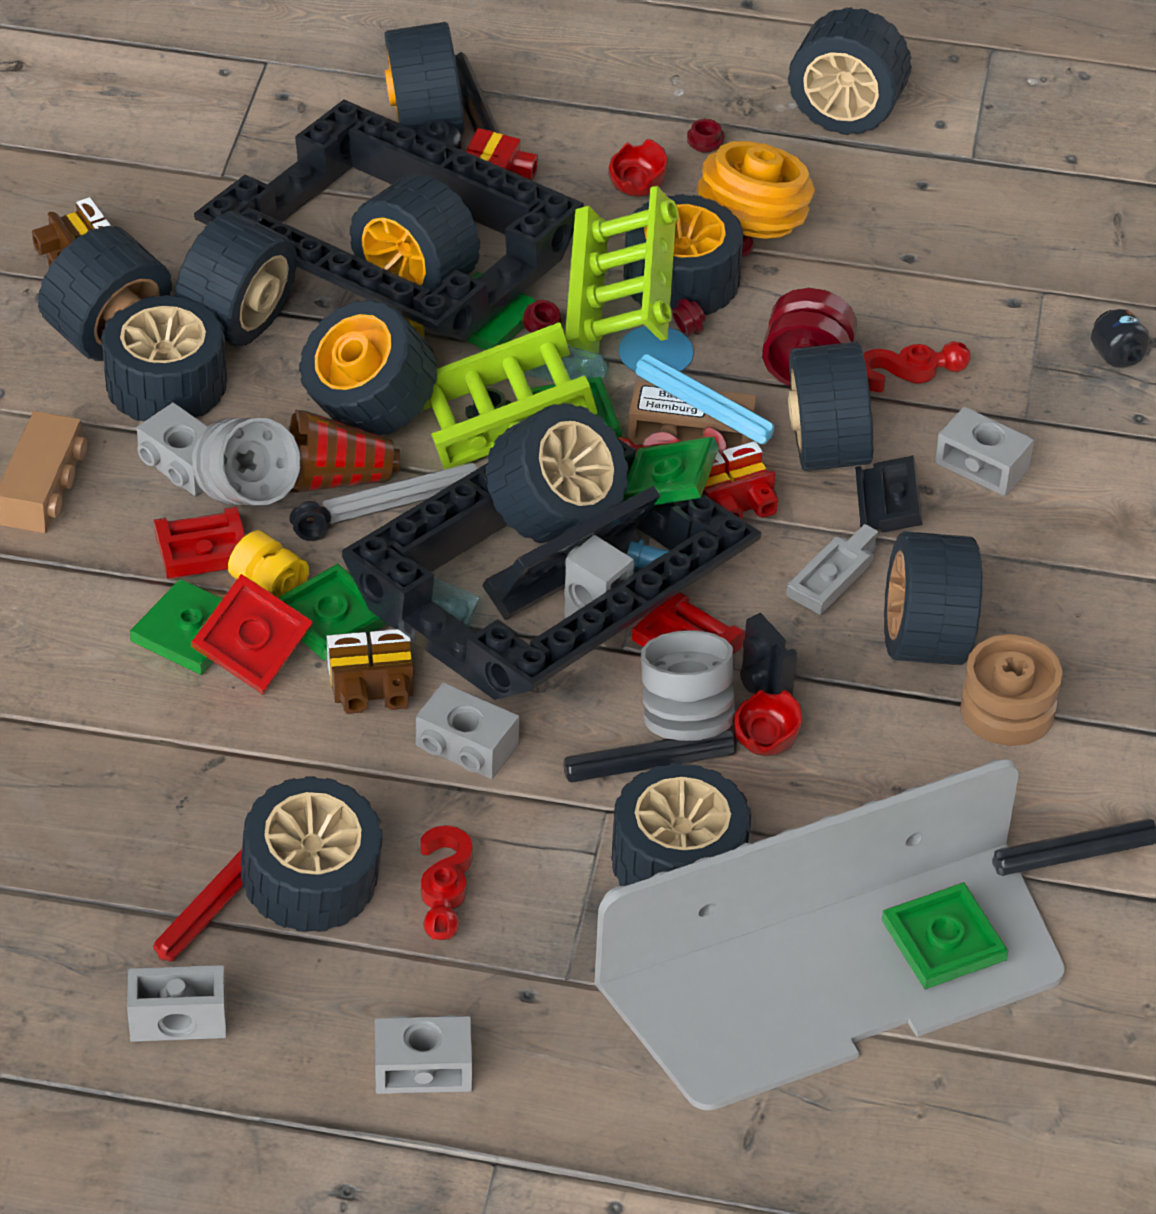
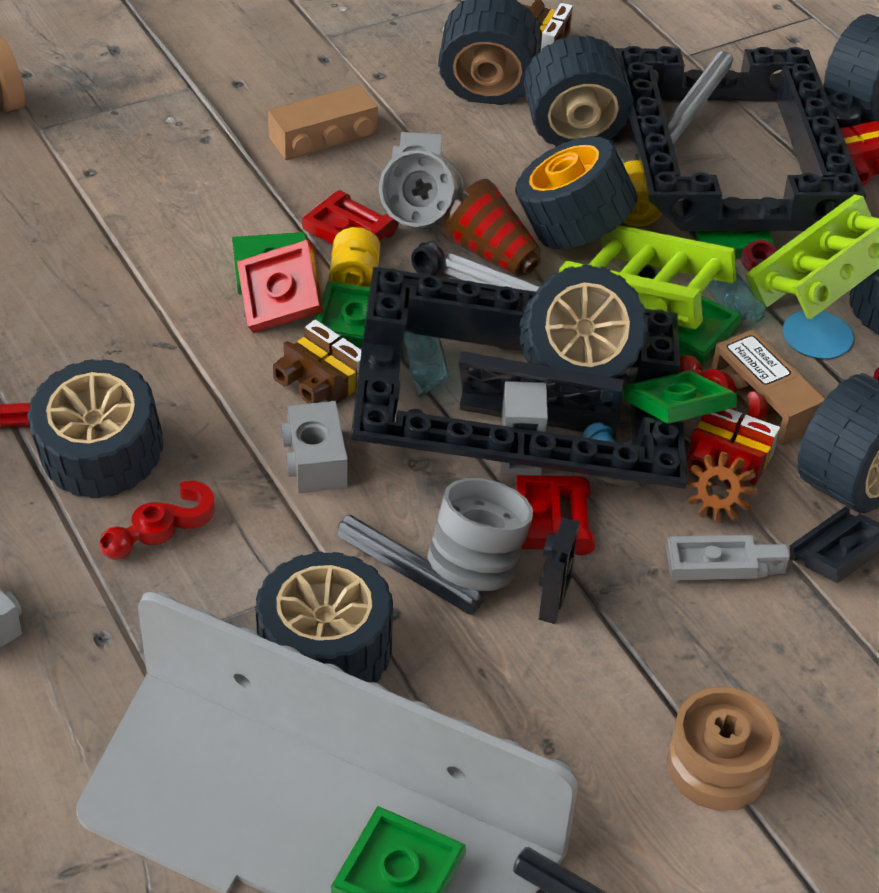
camera: 50 degrees right, 0 degrees up
(164, 355) = (479, 111): black wheel -> none
(302, 195) = (699, 94): none -> light grey axle
(416, 231) = (727, 139): black wheel -> none
(688, 317) = (864, 326): dark red plate -> none
(705, 399) = (777, 373): medium azure axle -> none
(768, 723) = (509, 611): red hair -> none
(790, 513) = (724, 473): none -> dark orange gear
(933, 598) = (740, 623): black wheel -> none

